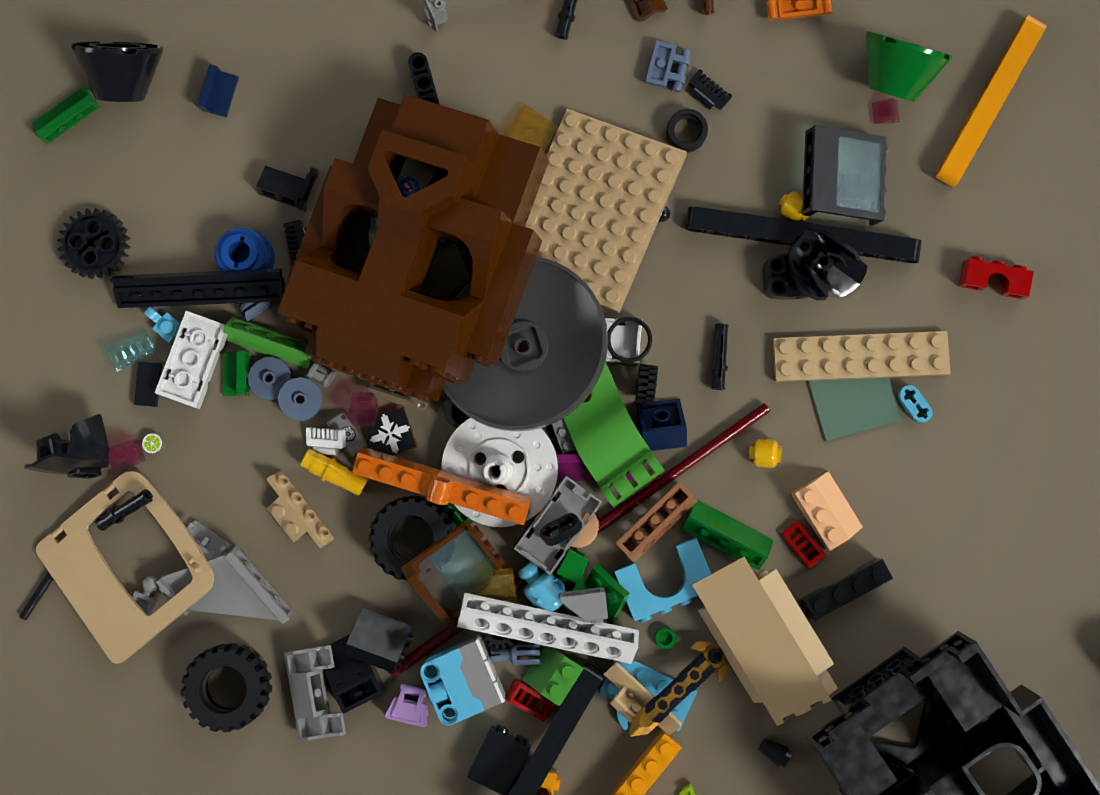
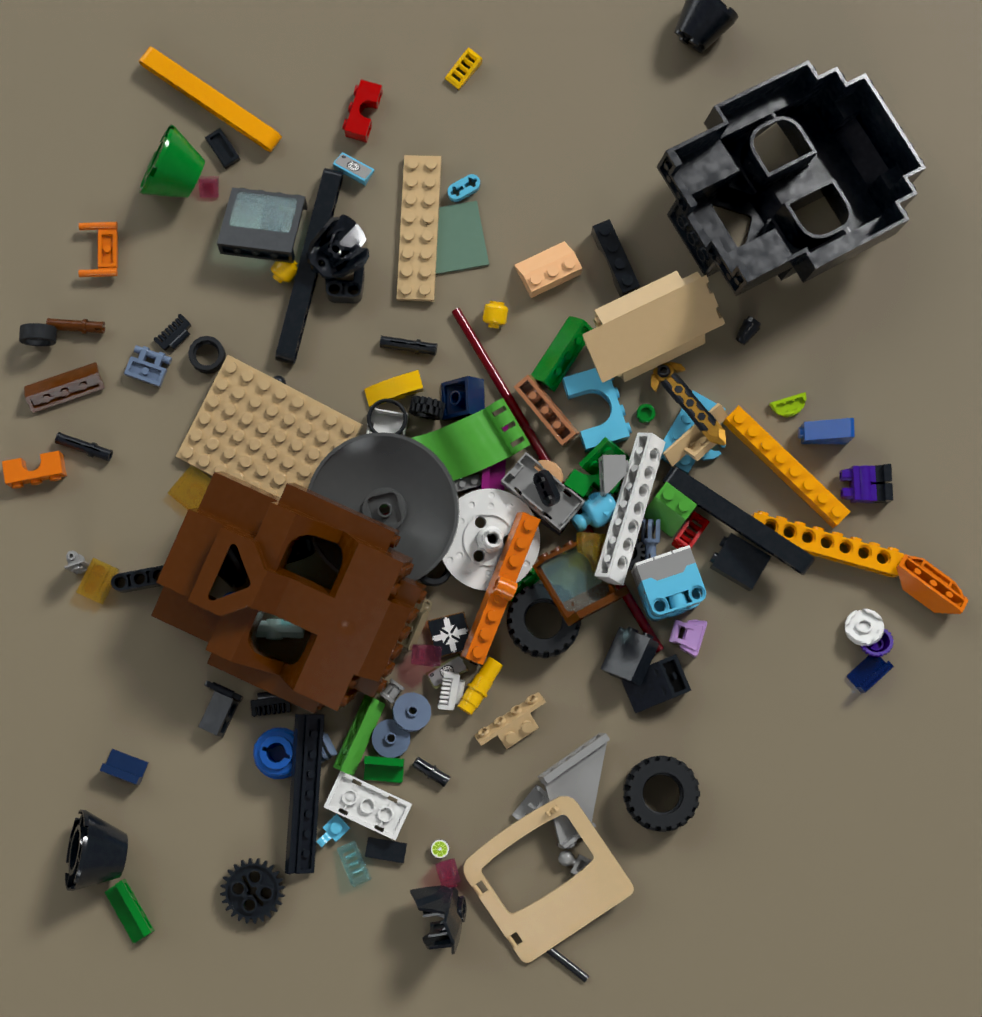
camera: 85 degrees left, 5 degrees down
(117, 513) = (501, 883): black pin -> none
(235, 426) = (431, 771): none -> black axle
(310, 695) = (672, 720): light grey bracket -> none
(419, 37) = (97, 581): none -> clear yellow plate
(667, 345) = (395, 388): none -> yellow slope
(797, 549) = (584, 277): red slope -> none
(925, 274) = (353, 168): none -> slope
(933, 122) = (222, 148): none -> black tile
(1064, 402) = (469, 53): none -> yellow slope

